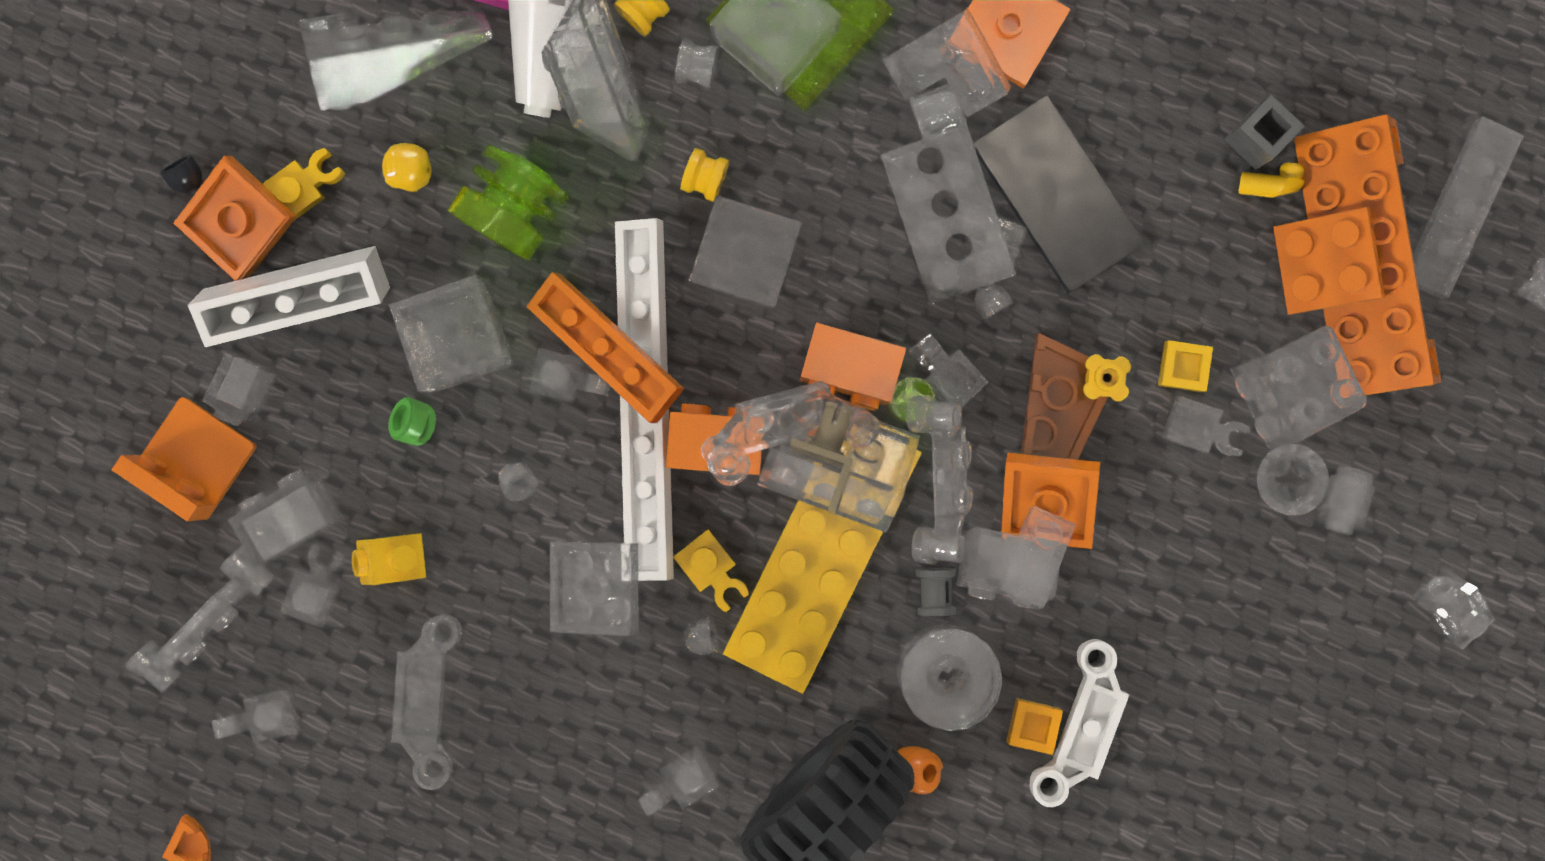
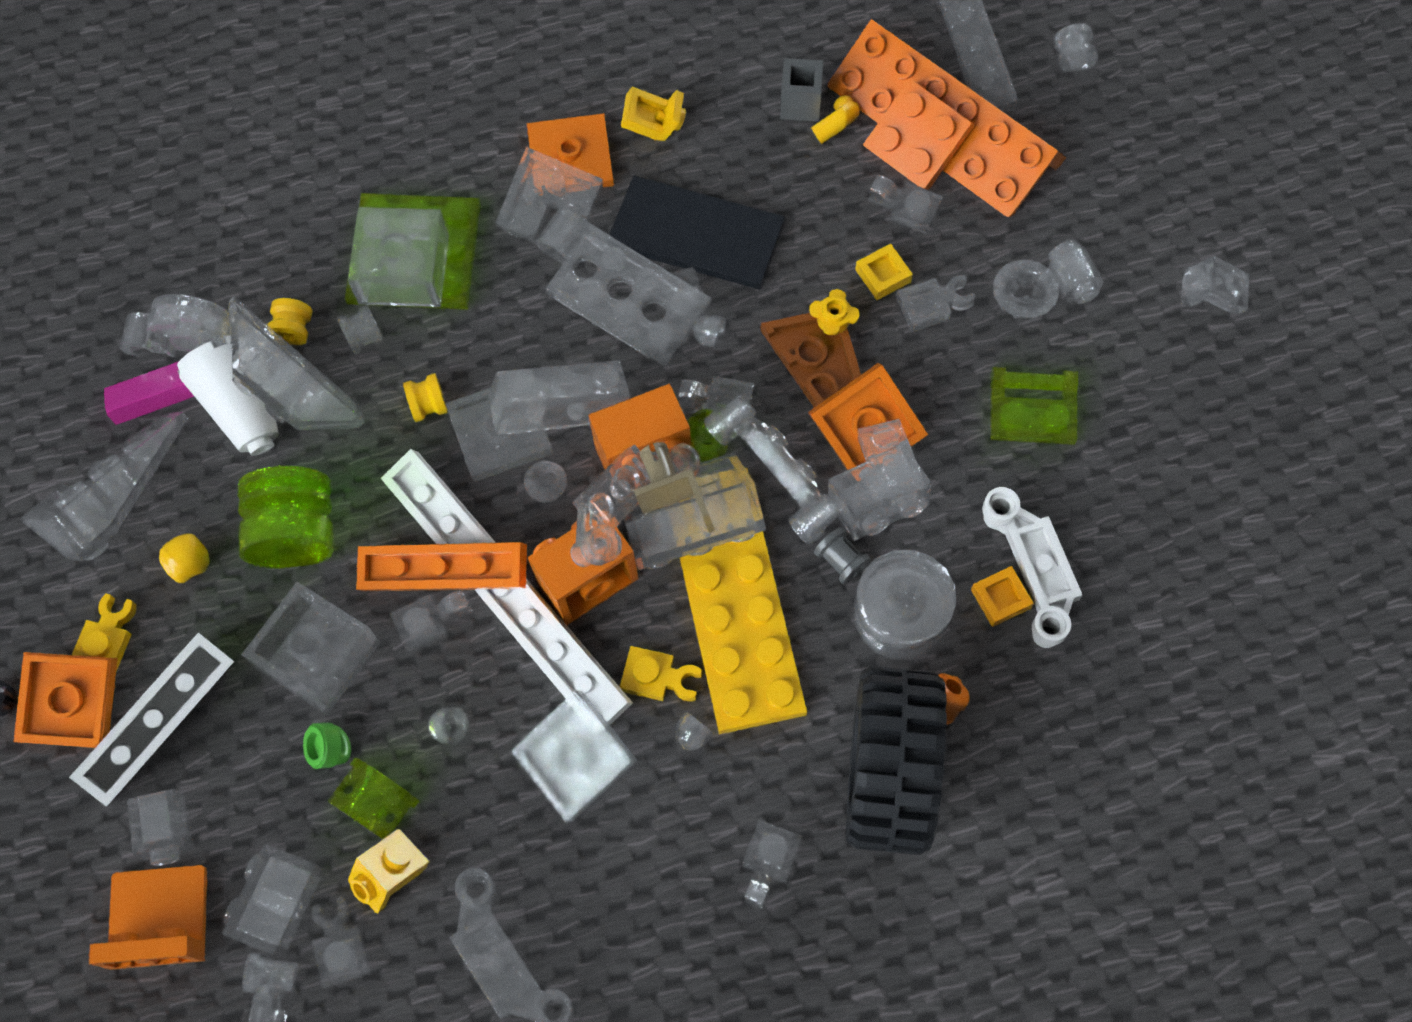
camera: 40 degrees left, 20 degrees down
(415, 492) = (372, 799): none -> clear neon green piece
(748, 330) = (545, 481): none -> clear plate
(811, 271) = (554, 395): none -> clear brick
(1113, 46) = (652, 114): none -> yellow bracket
(1194, 597) = (1030, 417): none -> clear neon green plate
(1264, 321) = (910, 206): none -> clear plate
(1299, 388) = (971, 226): clear bracket -> none

